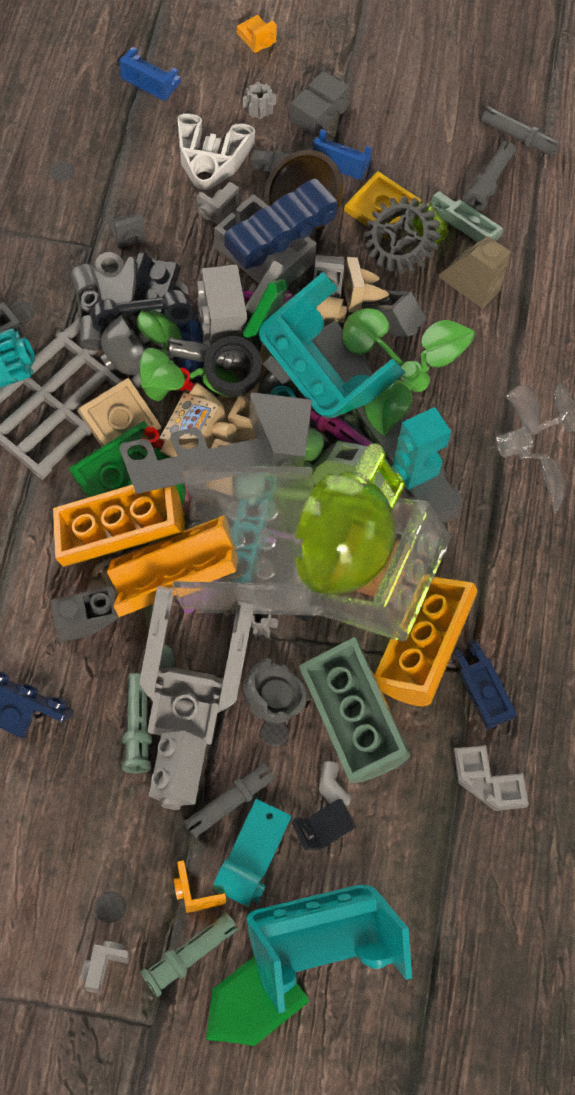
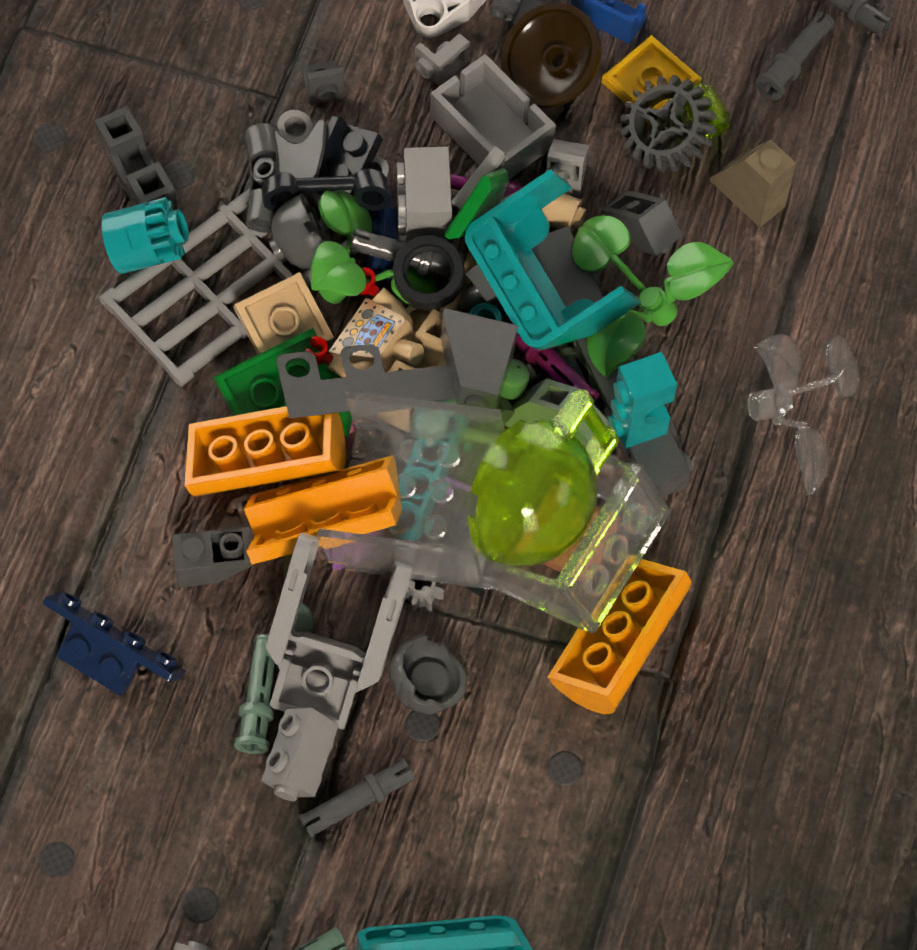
camera: 10 degrees right, 0 degrees up
(182, 891) = (302, 913): light orange bracket -> none
(252, 854) = (375, 864): teal door -> none
(279, 224) = (516, 95): dark blue brick -> none
(324, 826) = (465, 841): black bracket -> none
(328, 785) = (480, 799): light grey arm -> none
(355, 712) = (520, 711): sand green brick -> none
(358, 285) = (602, 183): tan tile -> none
(466, 218) = (755, 110): sand green hinge -> none
(484, 686) = (685, 700): dark blue hinge -> none
(497, 792) = (679, 826): light grey tile -> none

